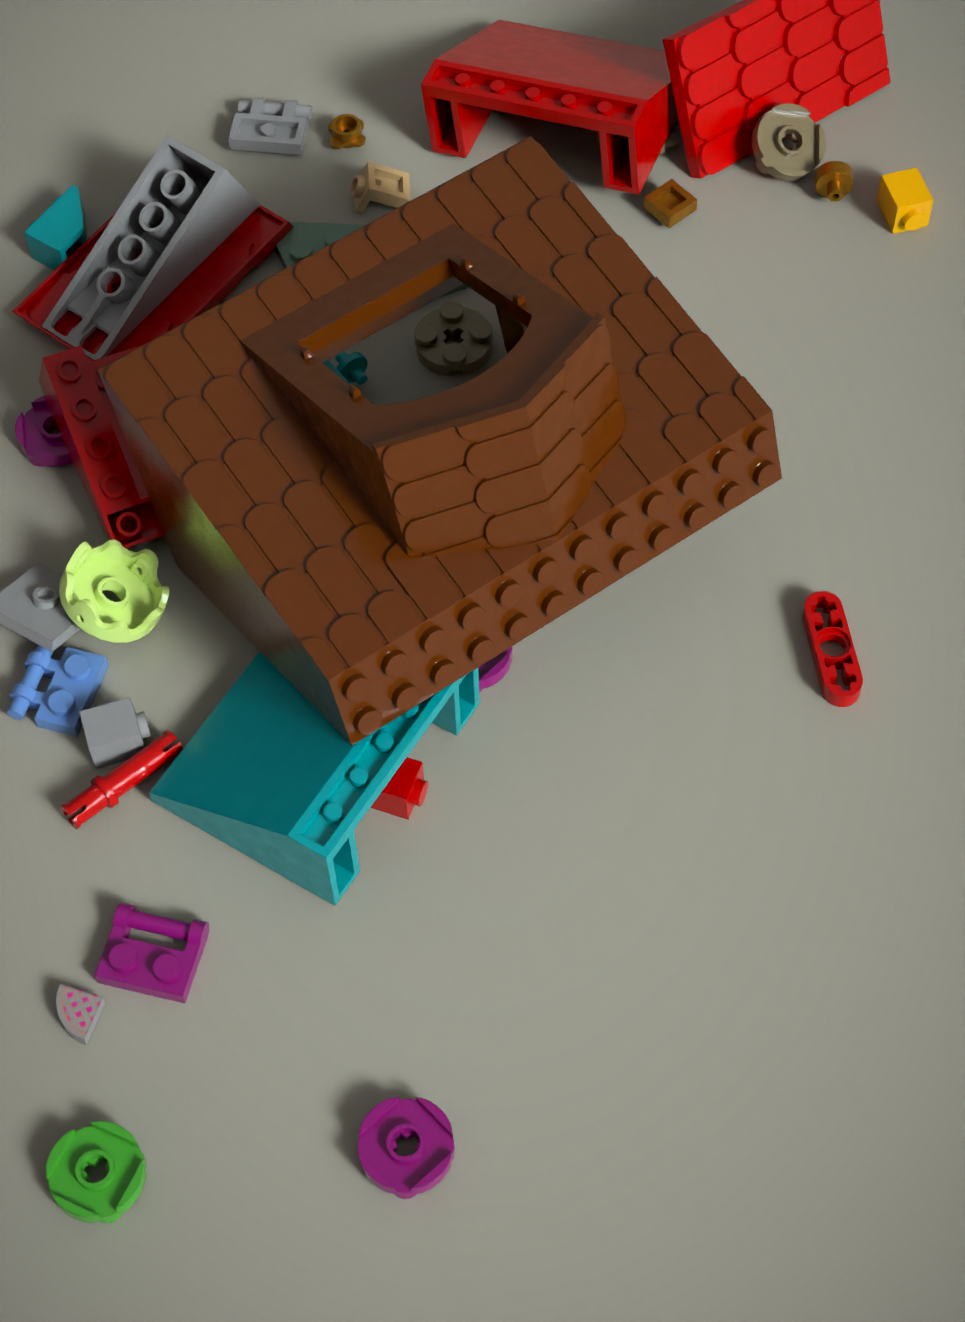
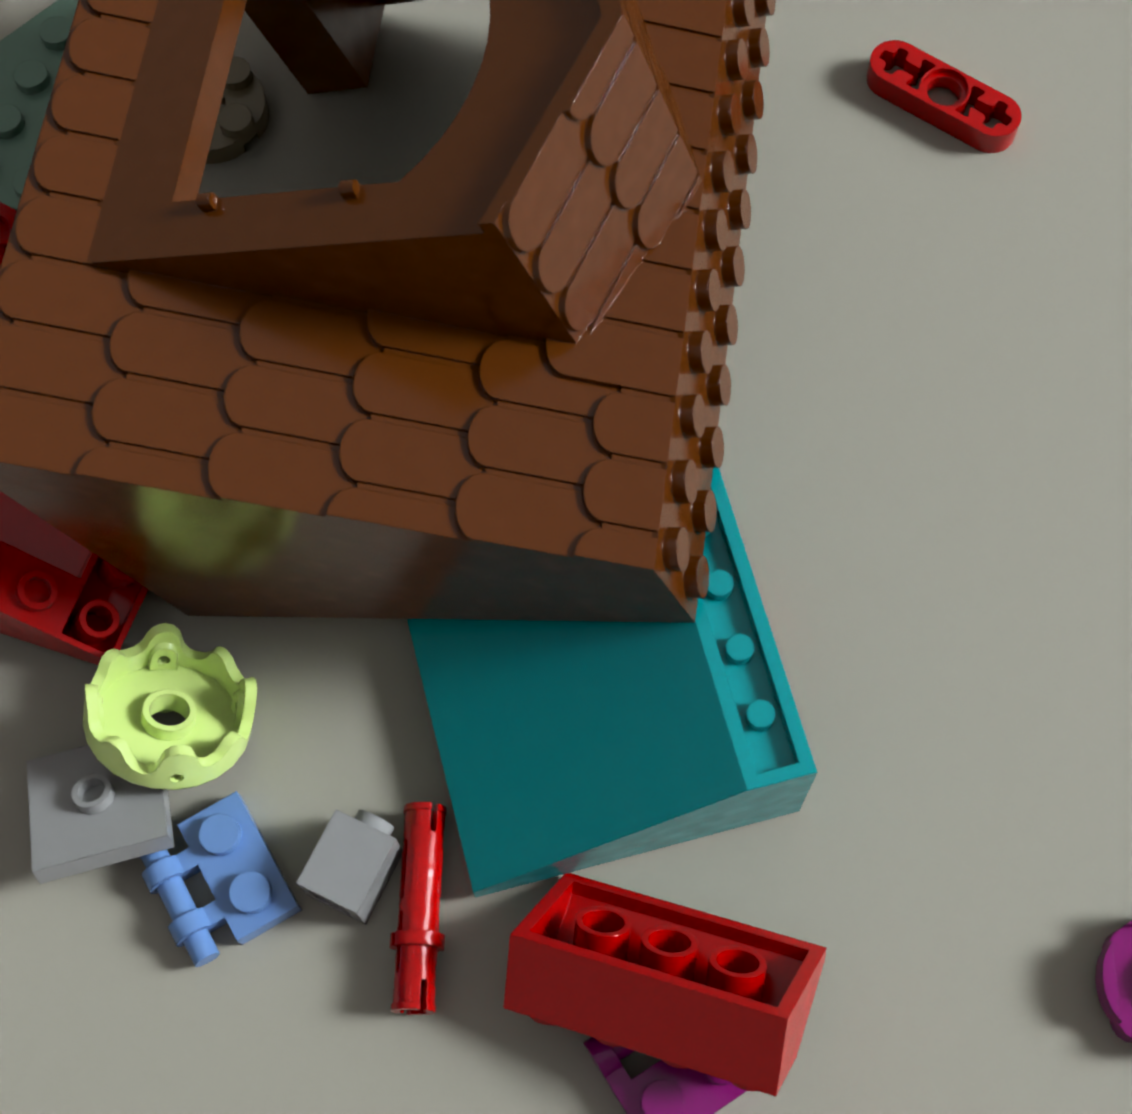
camera: 45 degrees left, 10 degrees up
(179, 902) = (664, 981): none -> red slope

